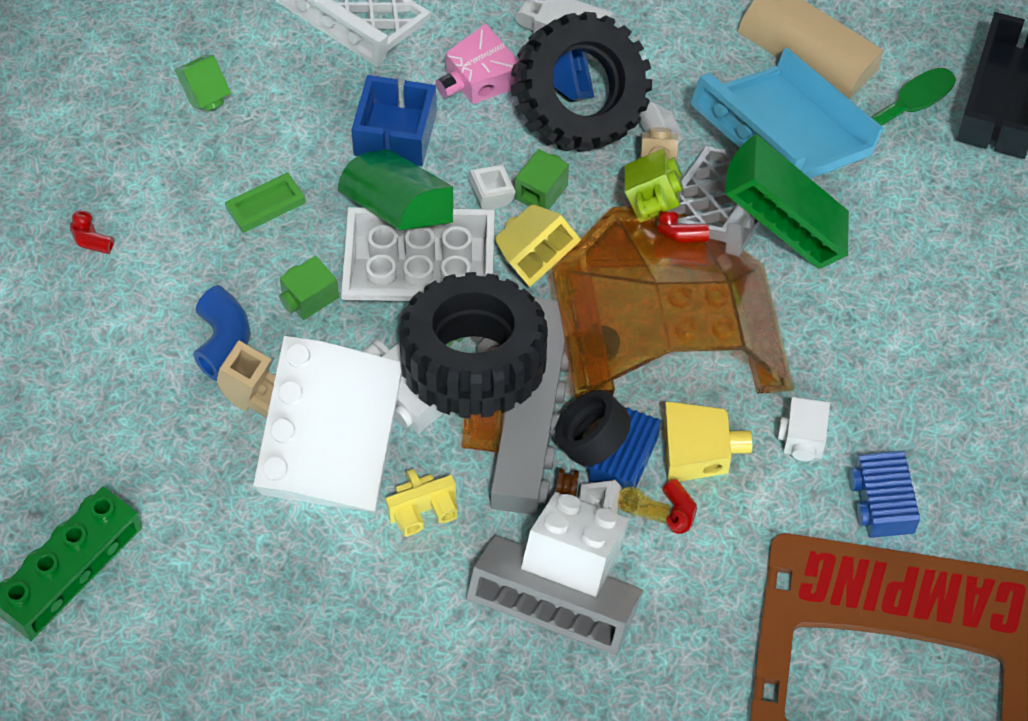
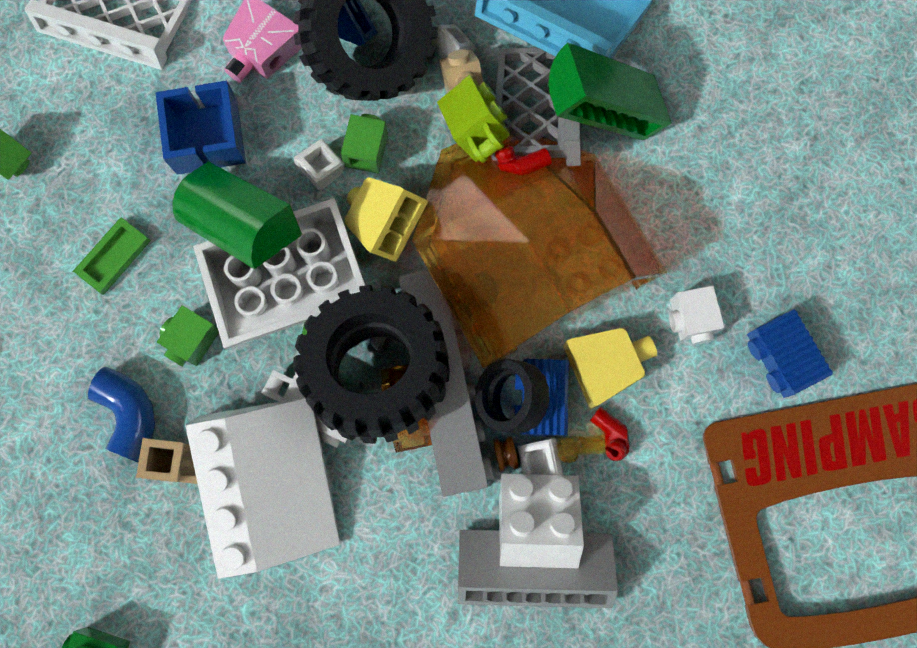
camera: 20 degrees left, 20 degrees up
(420, 496) = (369, 536): light yellow hips -> none

